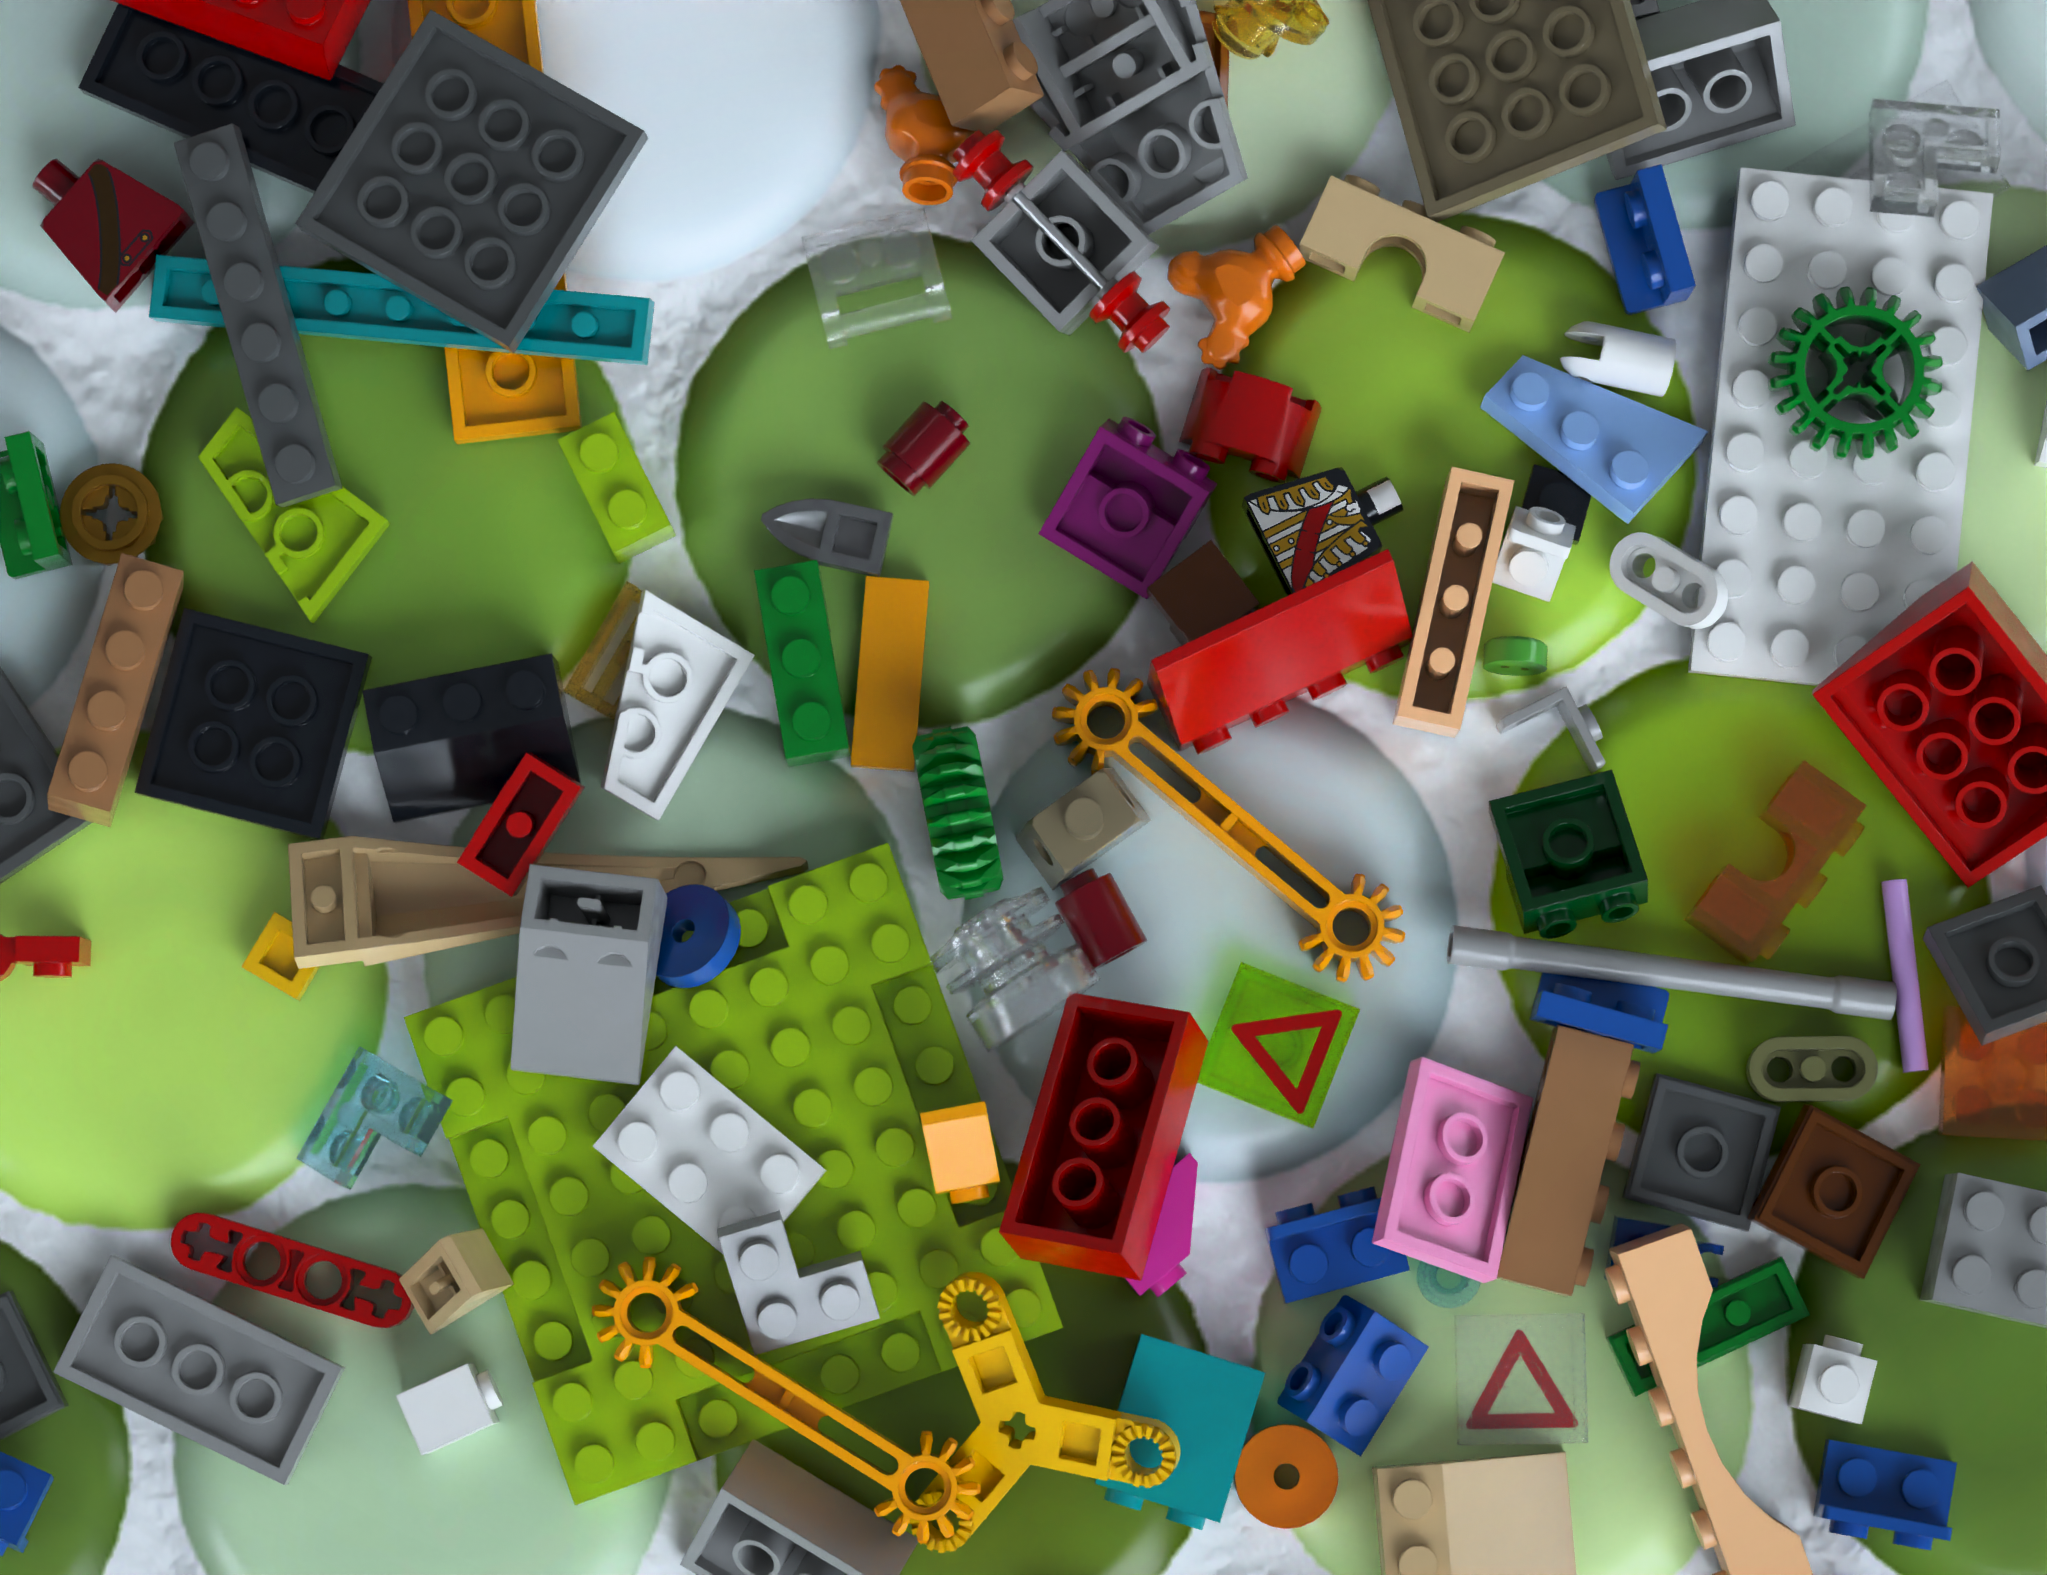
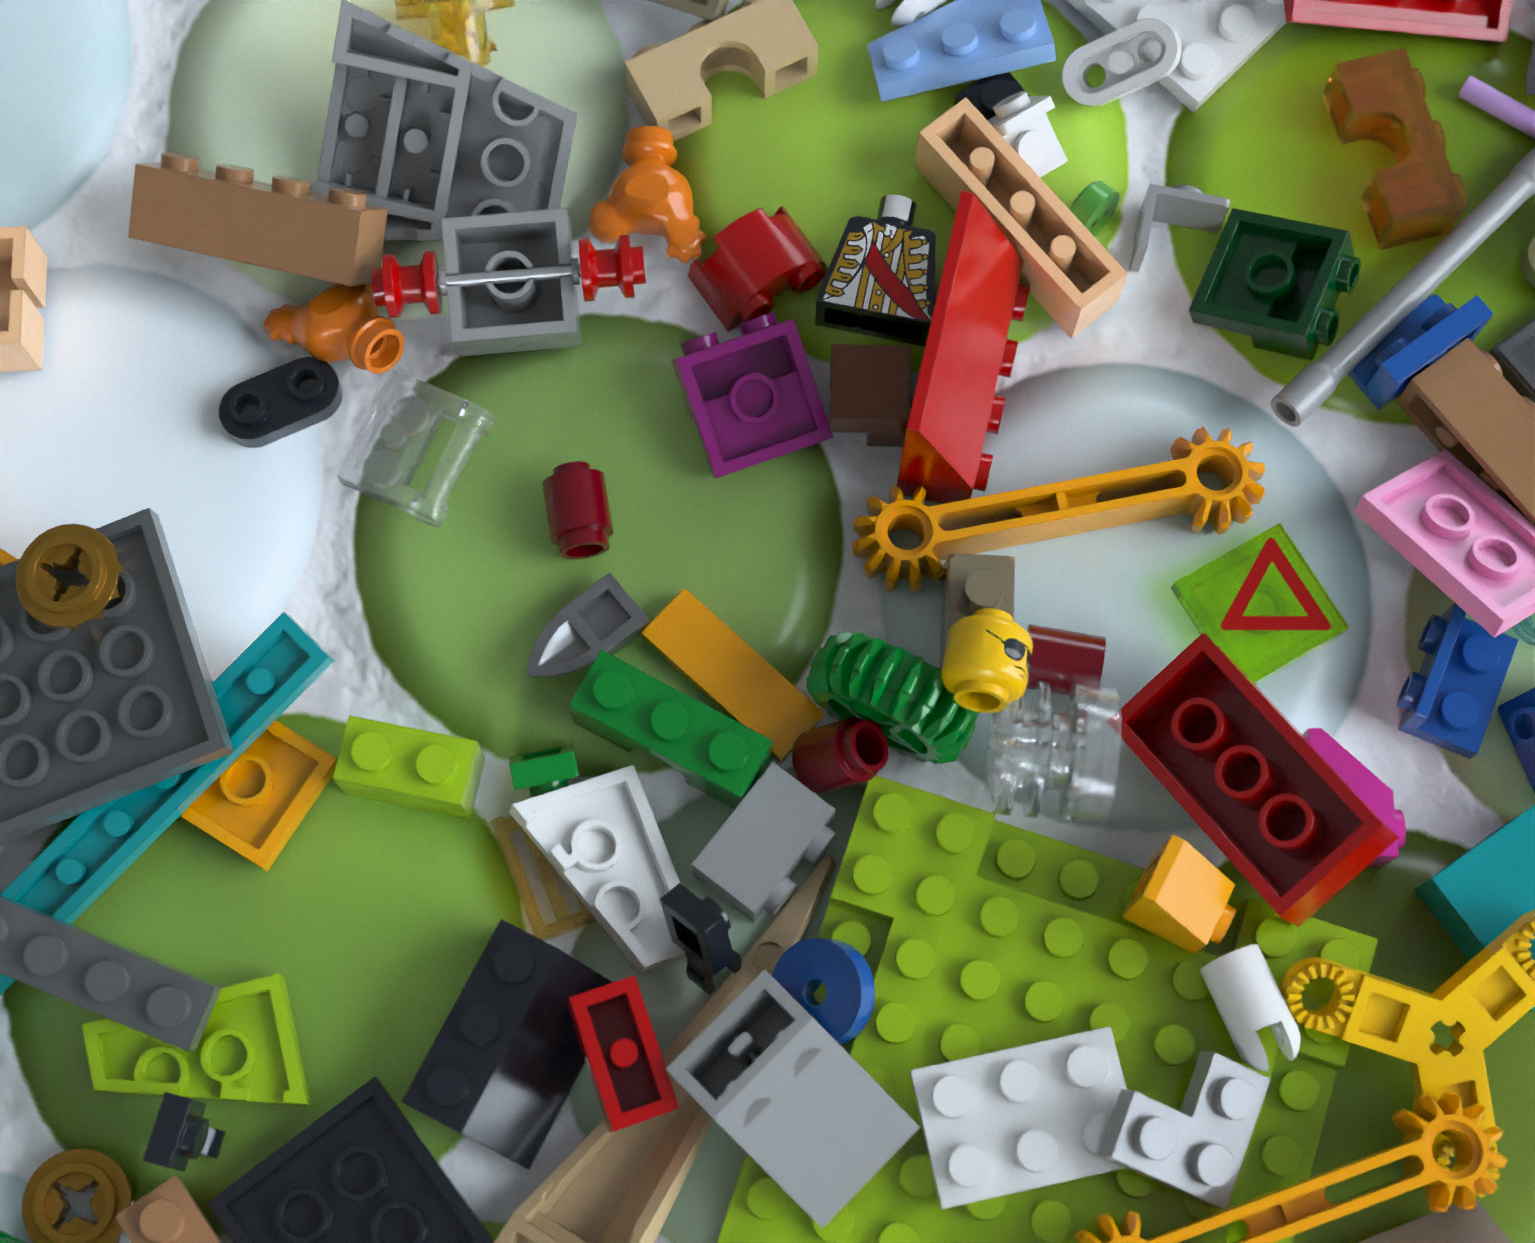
camera: 55 degrees left, 10 degrees down
(215, 550) = (181, 1134): none -> black plate
(517, 106) = (63, 549): none -> pearl gold gear
(660, 812) = (701, 932): none -> black plate
(698, 589) = (544, 769): none -> green plate
(772, 804) = (765, 843): none -> light grey brick
(827, 139) = (281, 406): none -> black plate
(883, 806) = (839, 754): none -> dark red brick
(927, 1260) = (1250, 1001): none -> white piece
(1026, 862) = (986, 660): none -> yellow head

